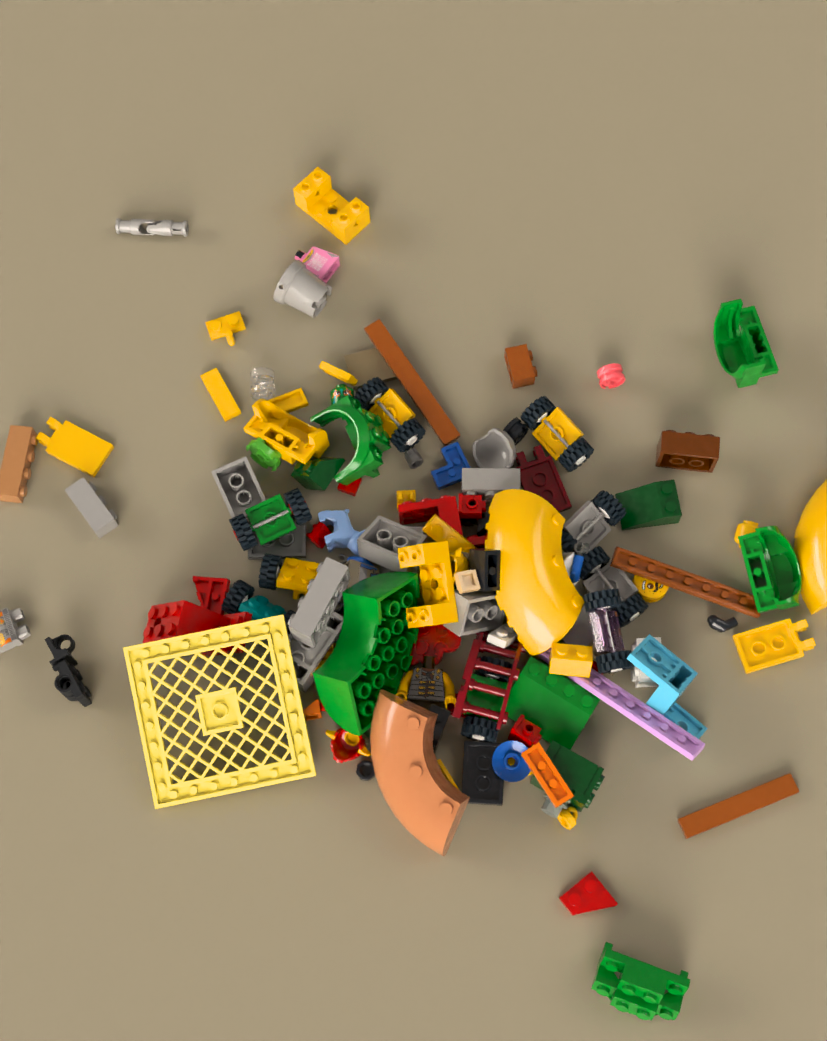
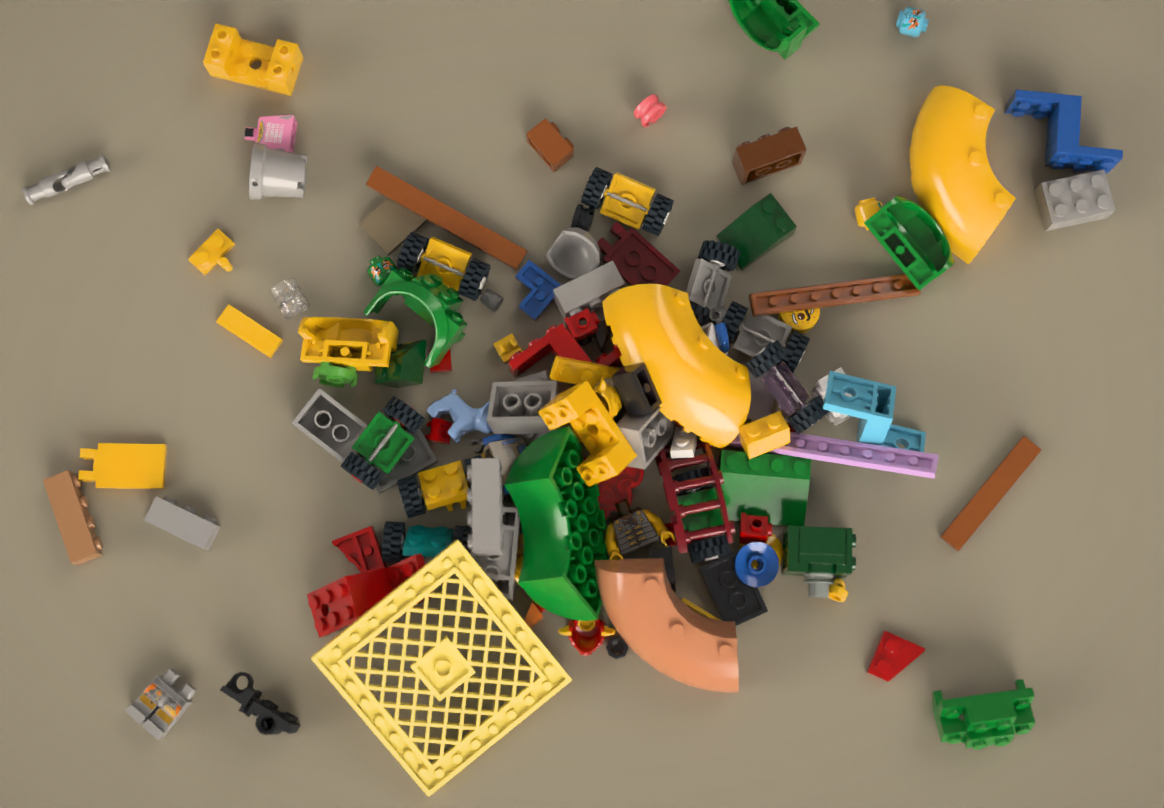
camera: 30 degrees left, 10 degrees up
(290, 401) = (327, 302): yellow tile -> none
(338, 373) = (364, 247): yellow tile -> none
(467, 581) = (627, 411): tan tile -> none
(547, 775) = (802, 564): orange plate -> none
(720, 625) = (887, 320): black arm -> none
(772, 644) = (945, 316): yellow tile -> none

